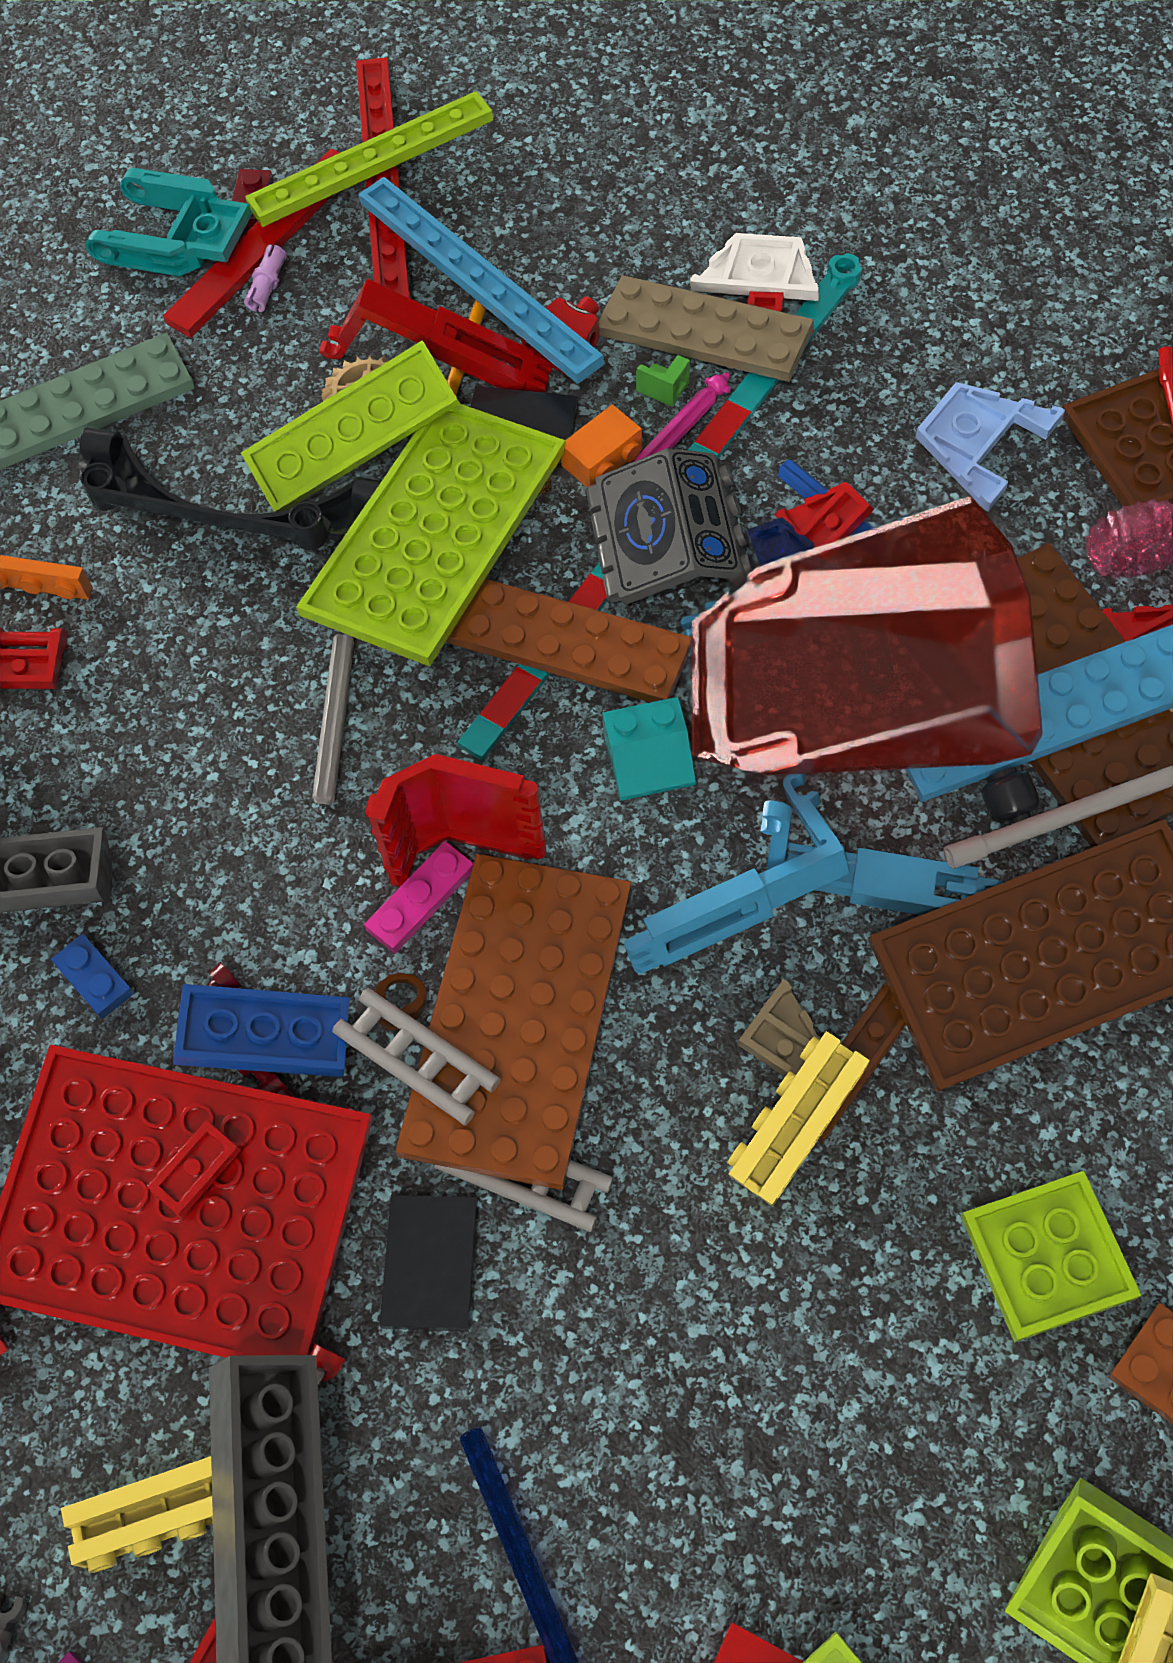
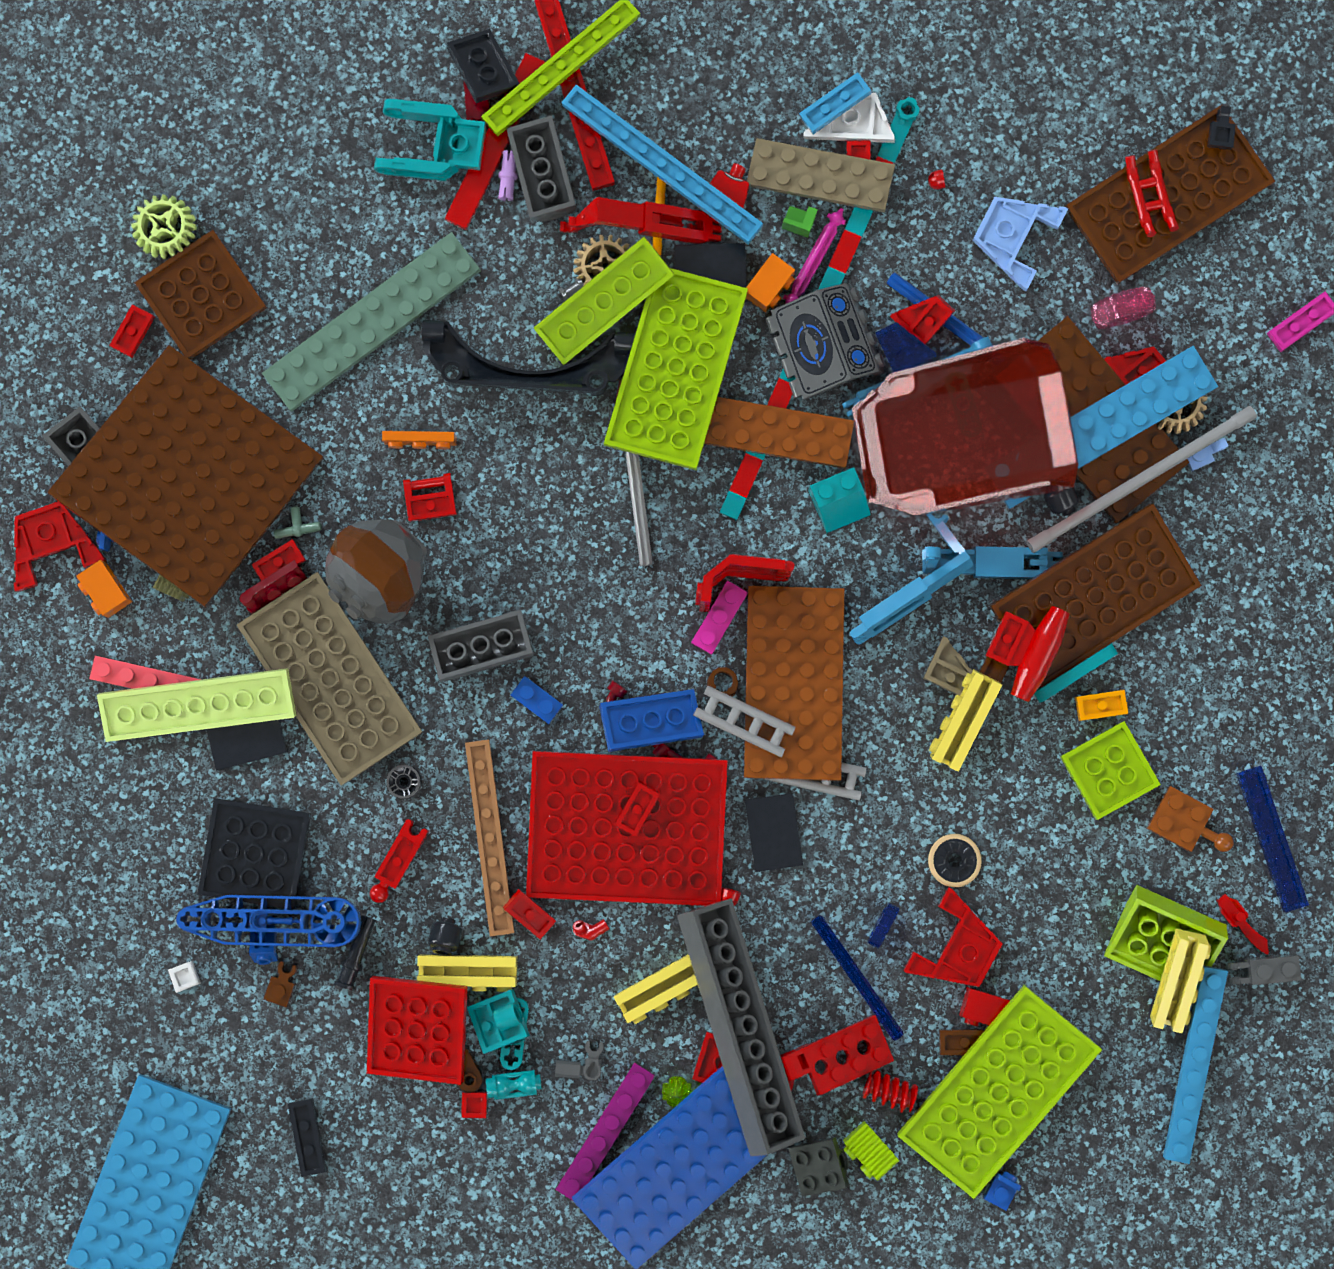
camera: 15 degrees left, 20 degrees up
(61, 1381) = (589, 931): none -> red arm
(266, 148) = (482, 65): none -> black plate
(310, 272) = (541, 170): none -> dark grey brick
(589, 1468) = (883, 925): none -> clear blue beam
(738, 1400) = (969, 856): none -> black wheel
(740, 240) = (835, 103): none -> dark azure plate
(740, 1550) = (967, 952): none -> red wing
(873, 355) = (936, 180): none -> red hinge
(929, 1014) = (1029, 649): none -> red plate
(1004, 1076) = (1075, 673): none -> teal beam
(1045, 1139) = (1101, 705): none -> light orange plate

